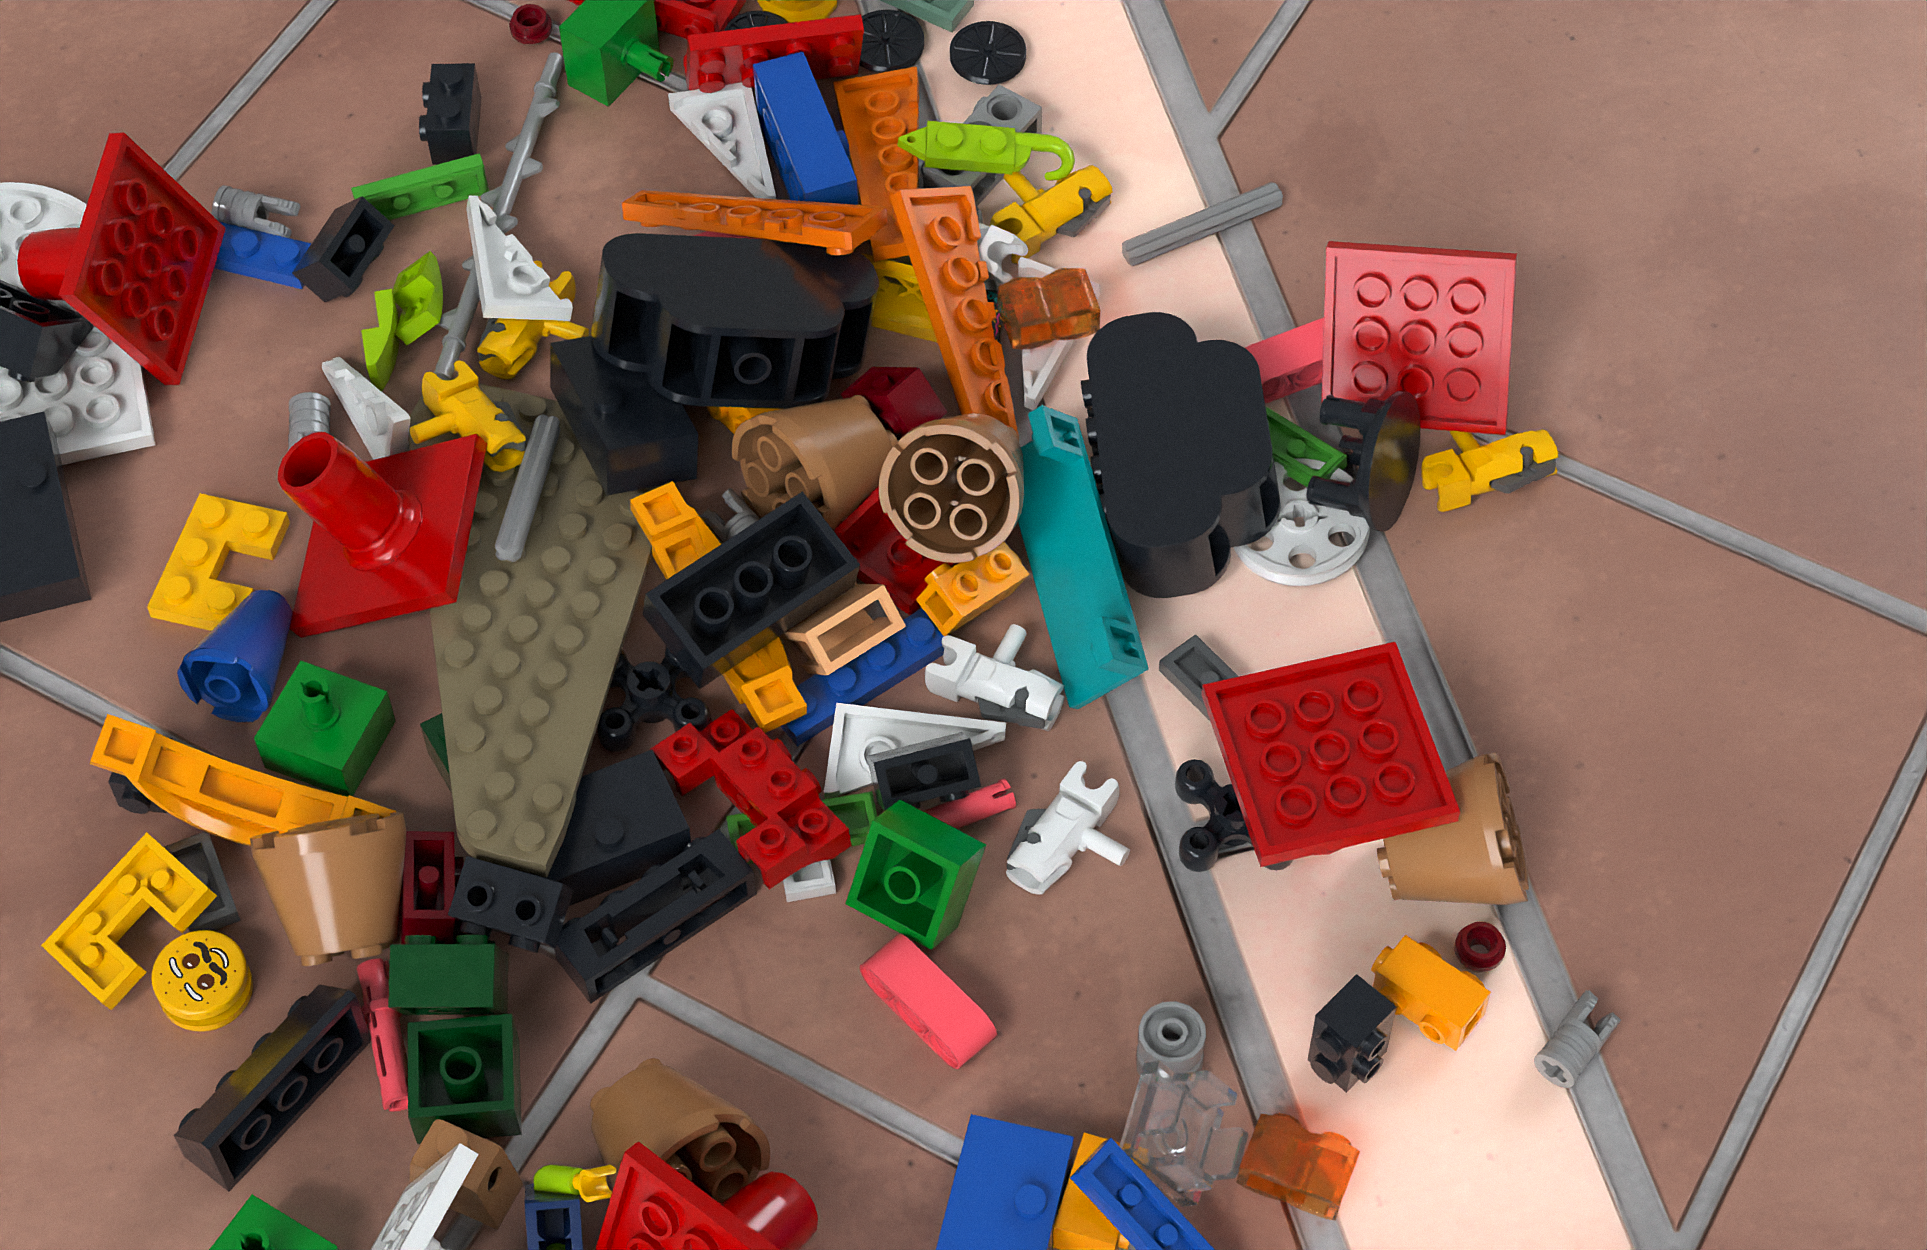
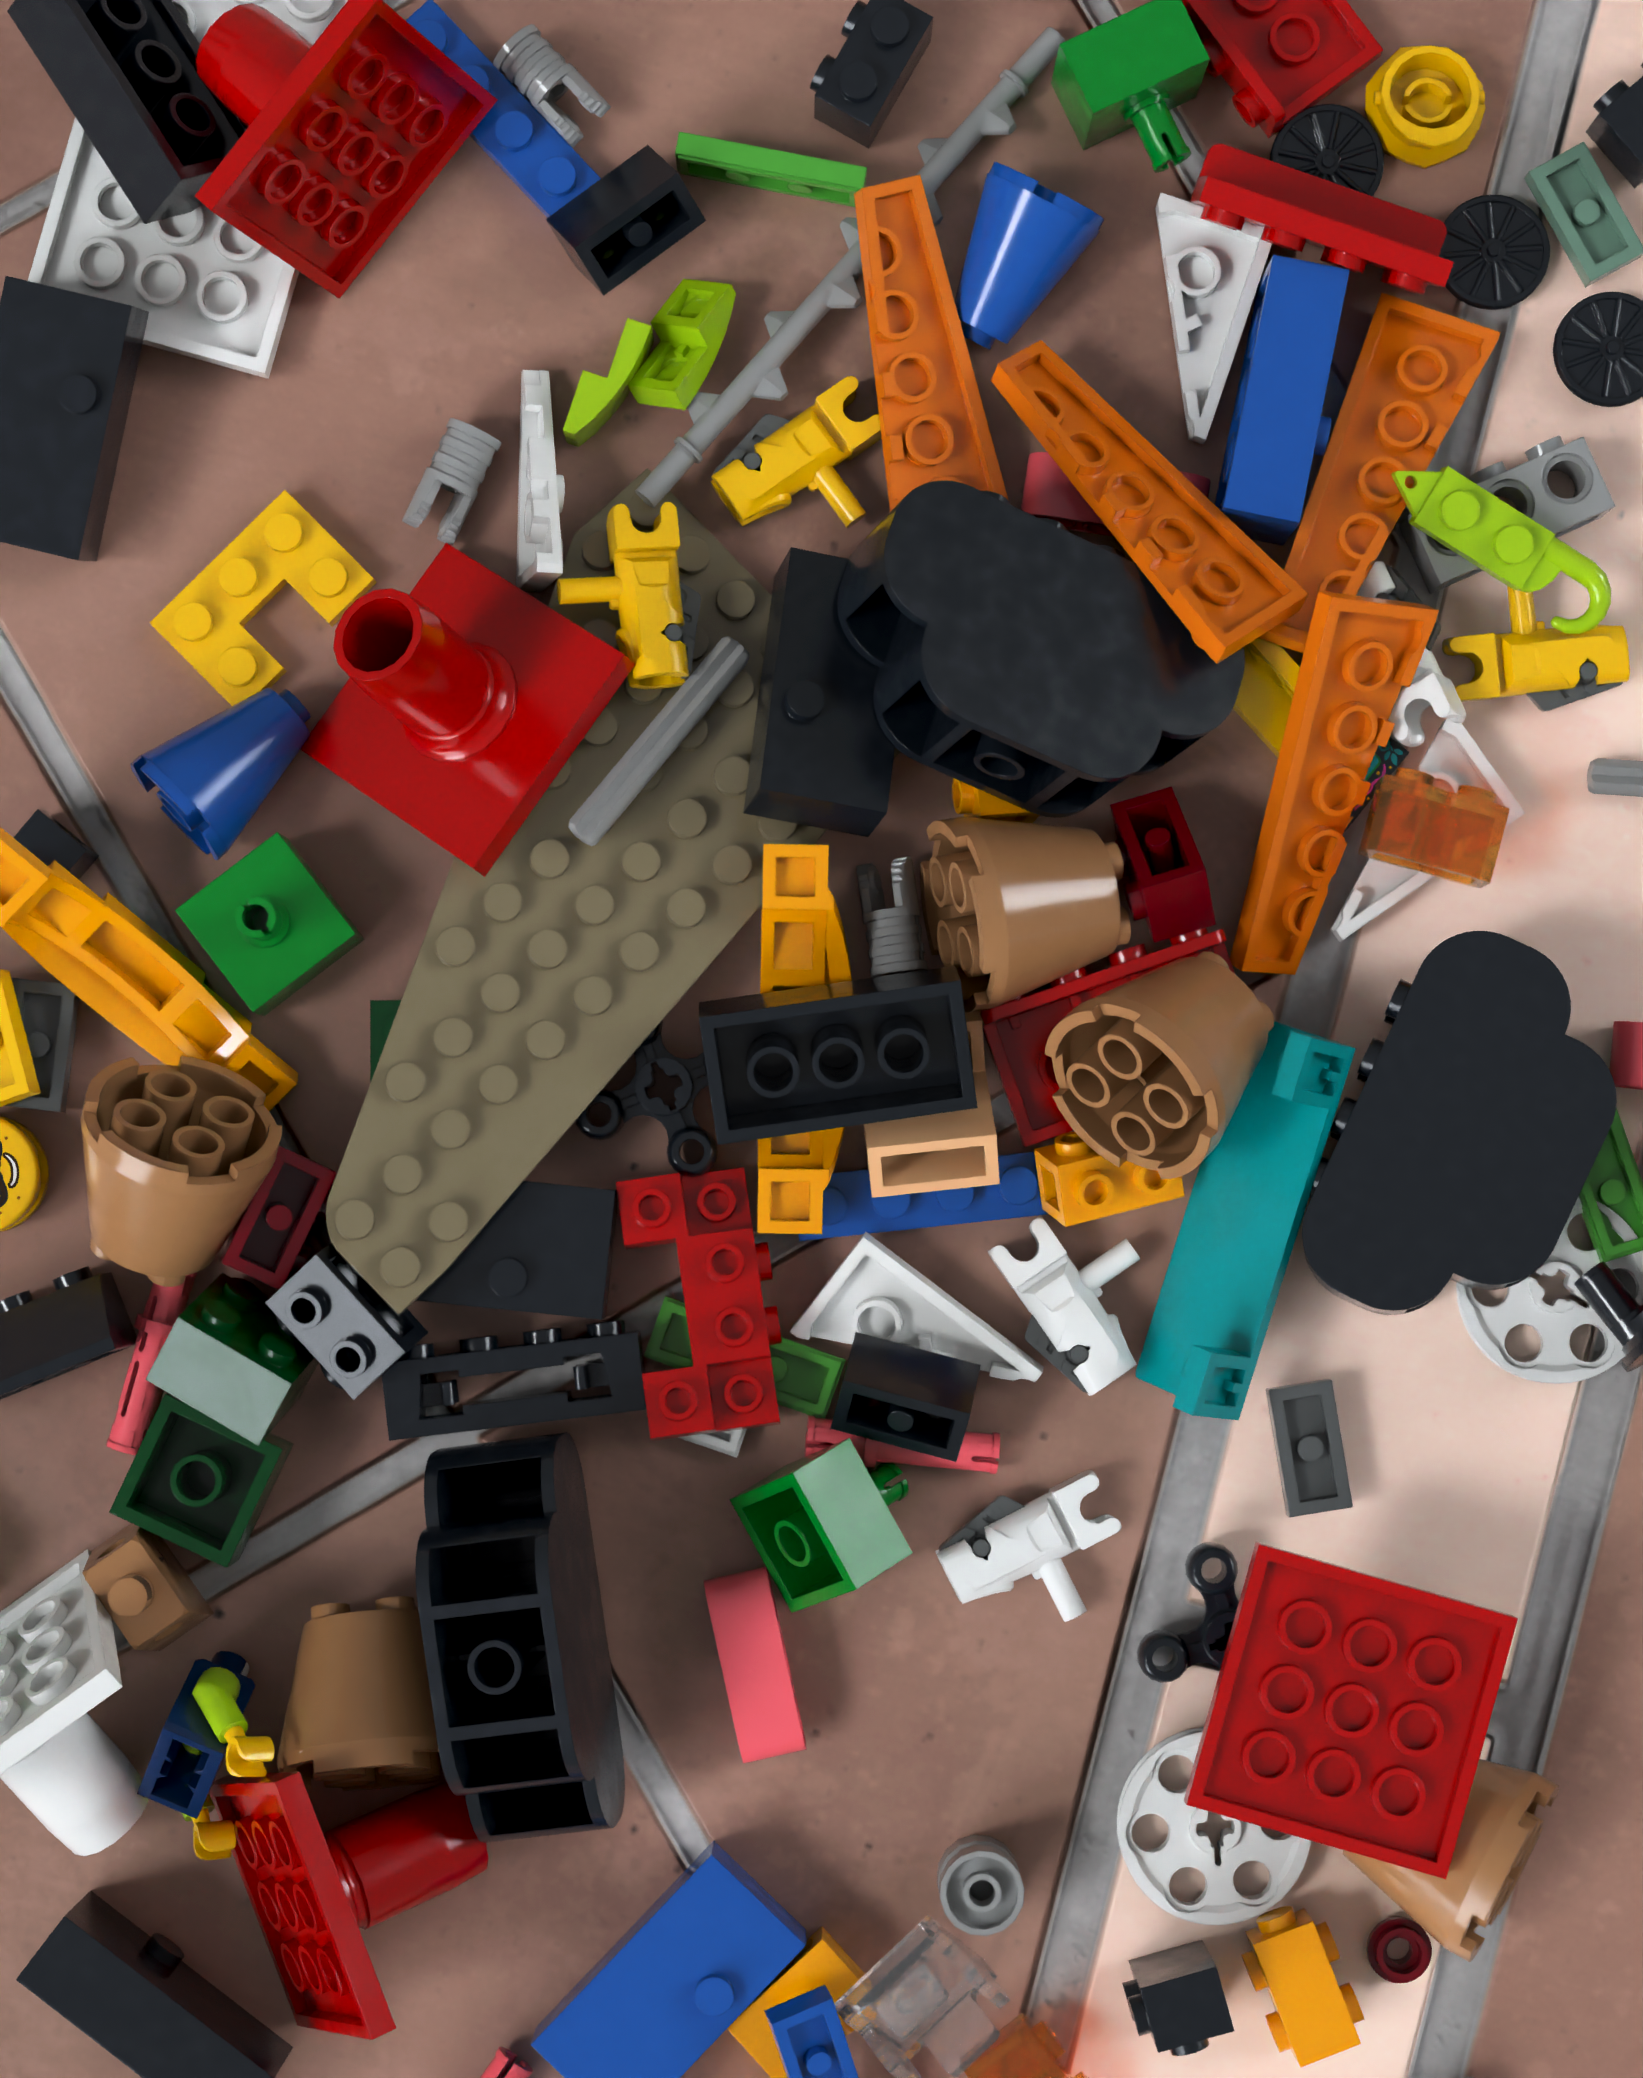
camera: 25 degrees right, 30 degrees up
(506, 275) = (798, 403): white wing -> none
(553, 212) = (921, 362): none -> orange wing
(599, 151) = (1017, 253): none -> blue cone
(757, 1037) = (518, 1640): none -> black brick
(1306, 917) = (1187, 1847): none -> white wedge

